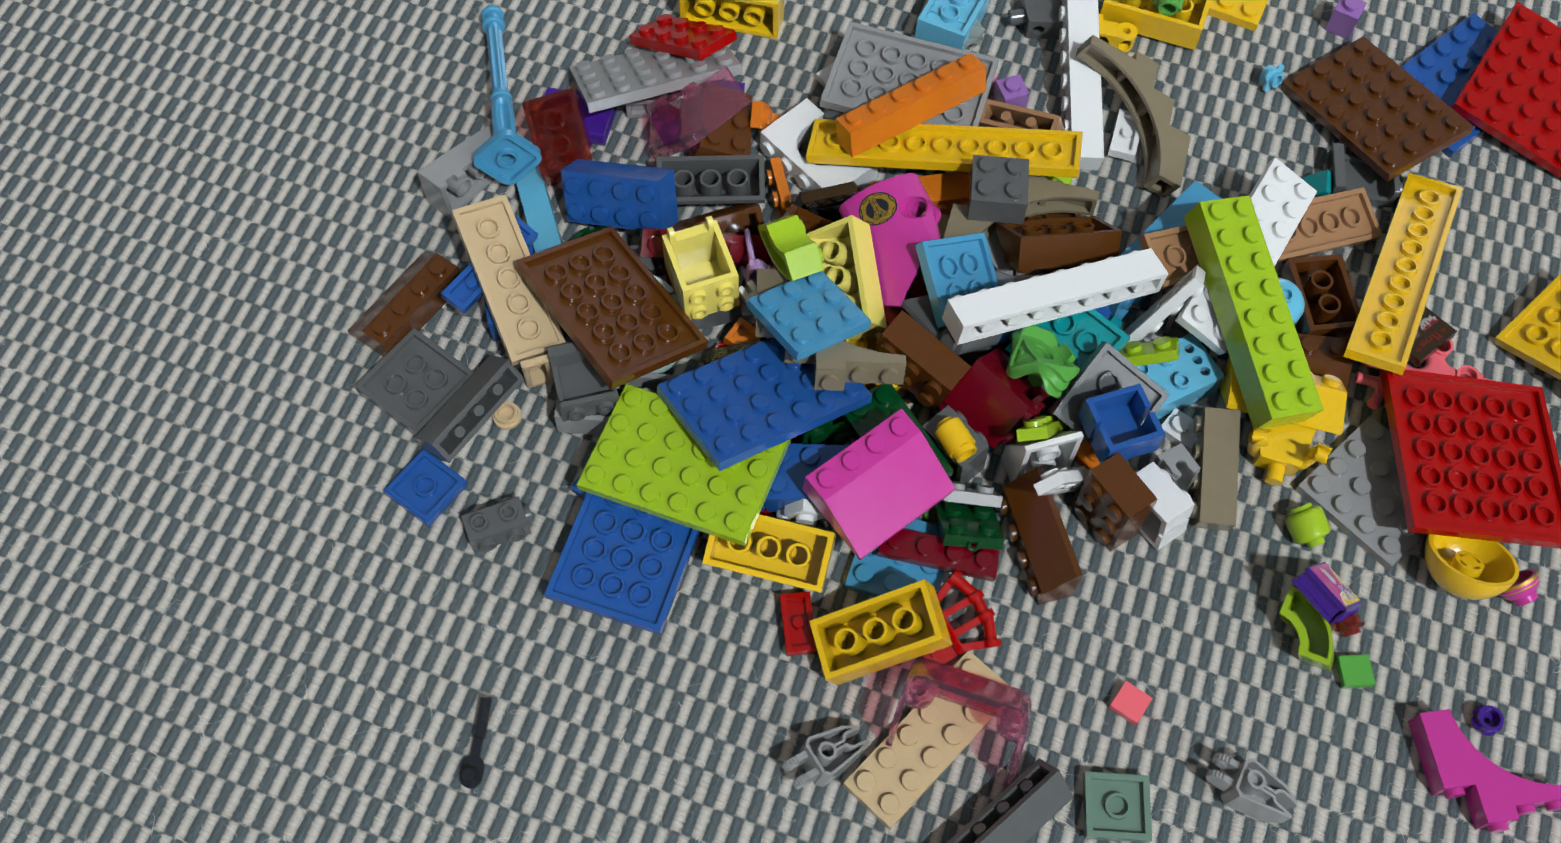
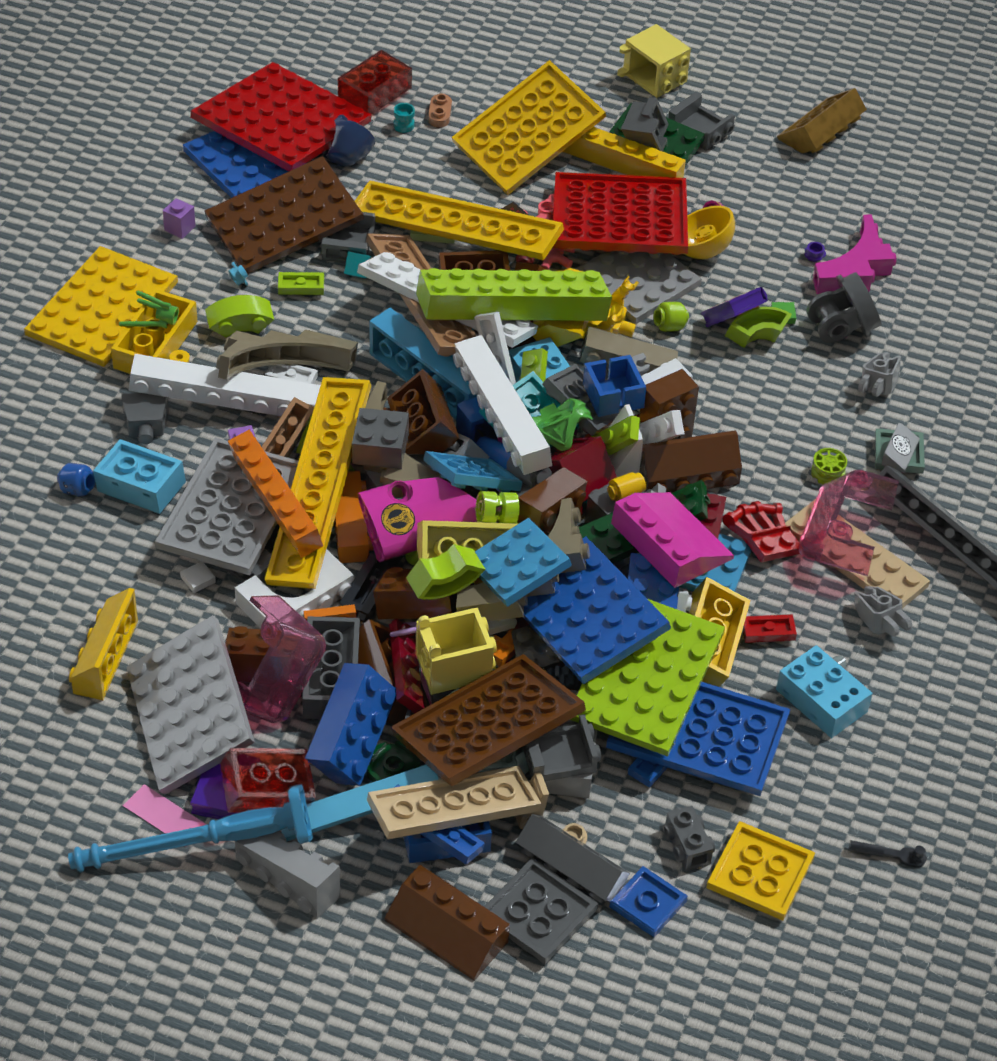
camera: 90 degrees left, 15 degrees down
(454, 599) = (761, 870): none -> yellow plate
(550, 74) = (160, 811): none -> bright pink sticker
(683, 37) = (150, 678): red plate -> none
(701, 679) = (824, 690): none -> medium azure piece
(762, 115) = (252, 619): orange plate -> none
(829, 196) = (367, 562): dark brown tile -> none
(880, 632) = (785, 561): yellow brick -> none
(893, 295) = (499, 508): none -> lime wheel
(1073, 711) = (828, 467): none -> lime wheel
(1109, 801) = (900, 448): none -> light grey slope
(1130, 703) = (817, 436): coral tile -> none
(1204, 79) = (239, 314): none -> lime brick
(1273, 135) = (300, 283): none -> lime plate
(1362, 748) = (829, 306): none -> dark grey piece
(1518, 162) = (350, 142): none -> dark blue piece

